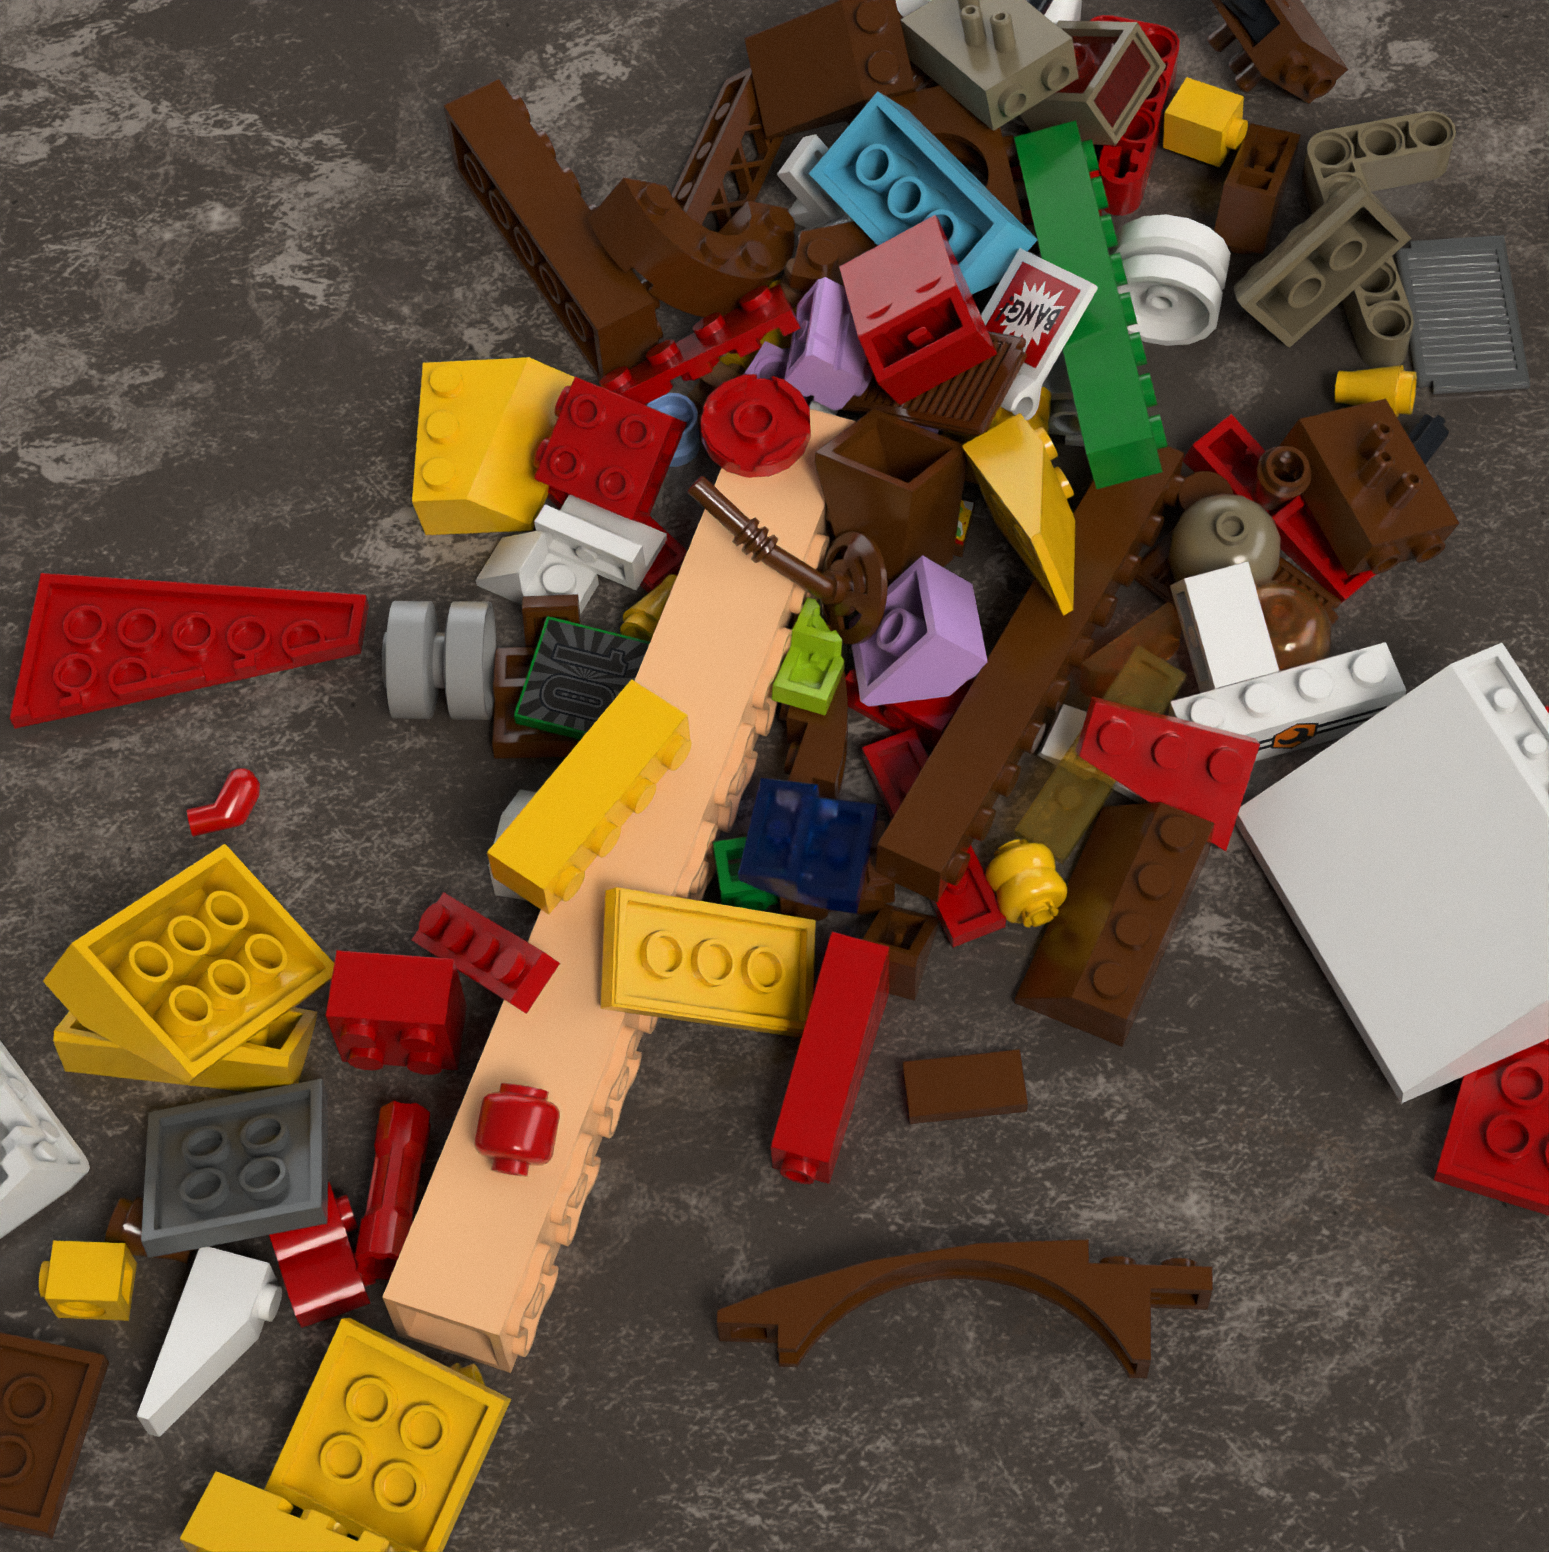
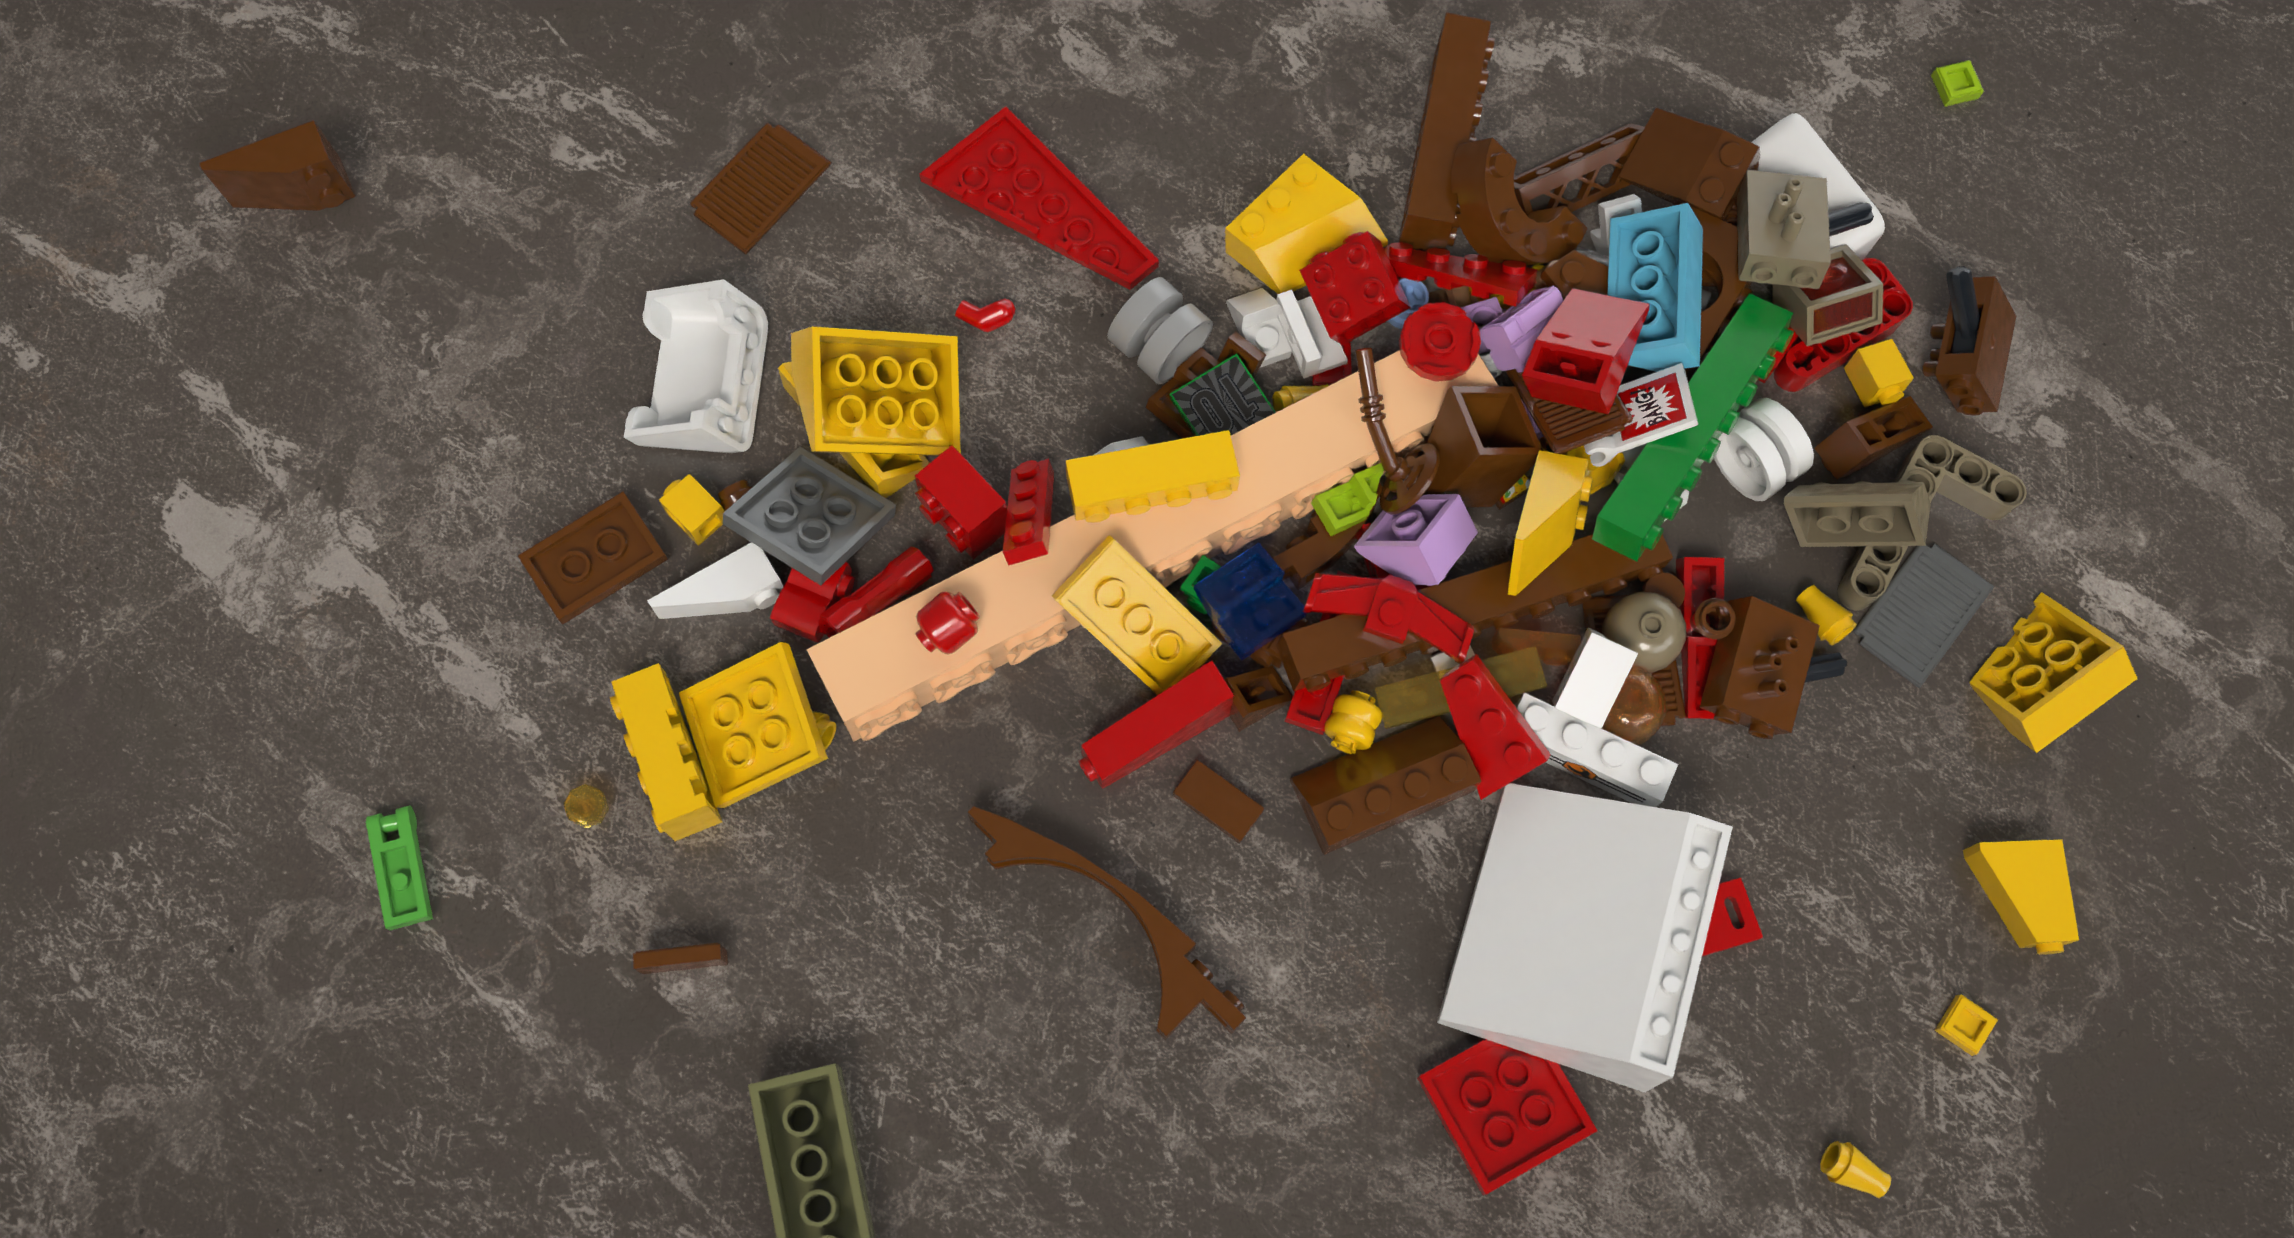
camera: 35 degrees right, 10 degrees up
(965, 728) = (1391, 610): none -> red plate

